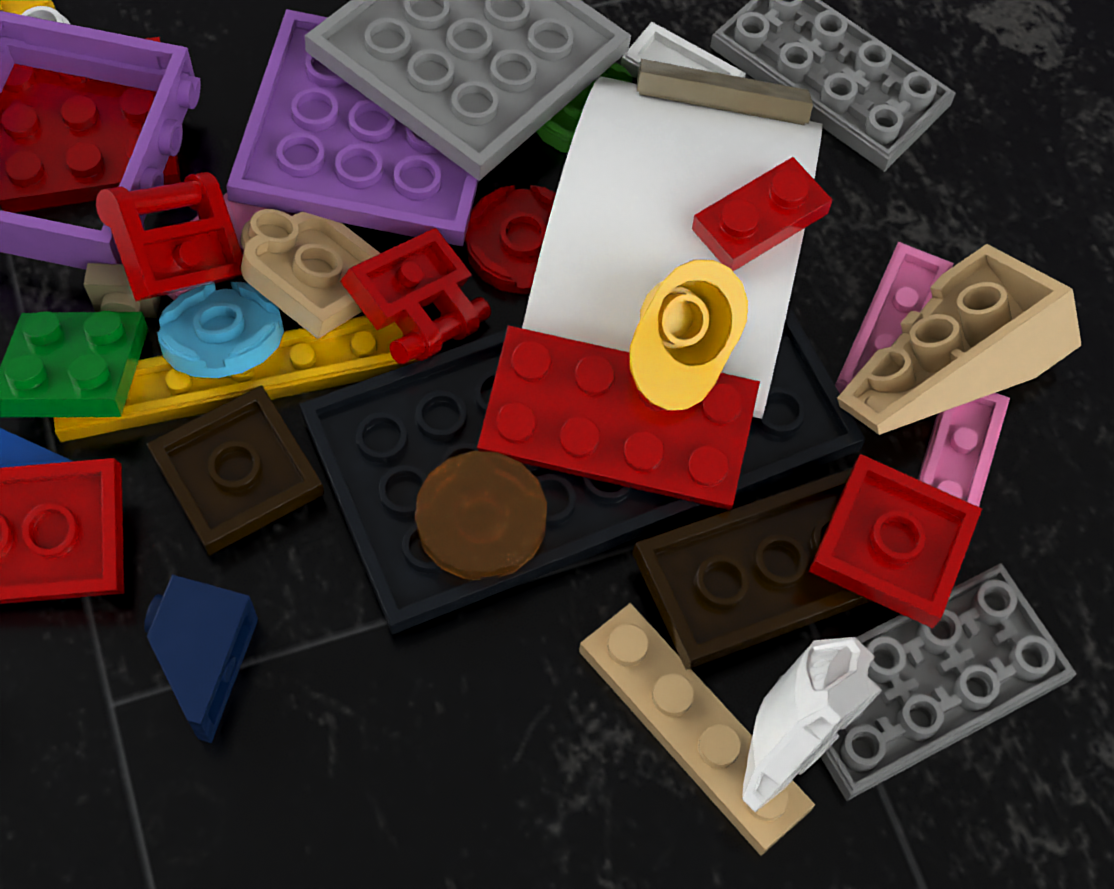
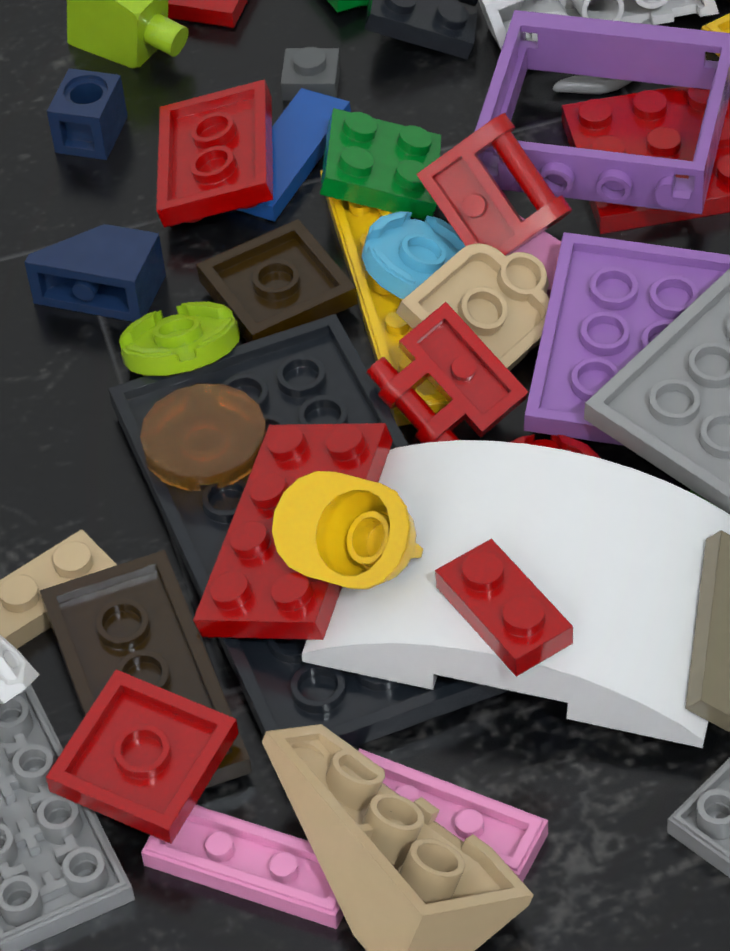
camera: 100 degrees right, 15 degrees down
(318, 559) = (181, 341): none -> lime tile

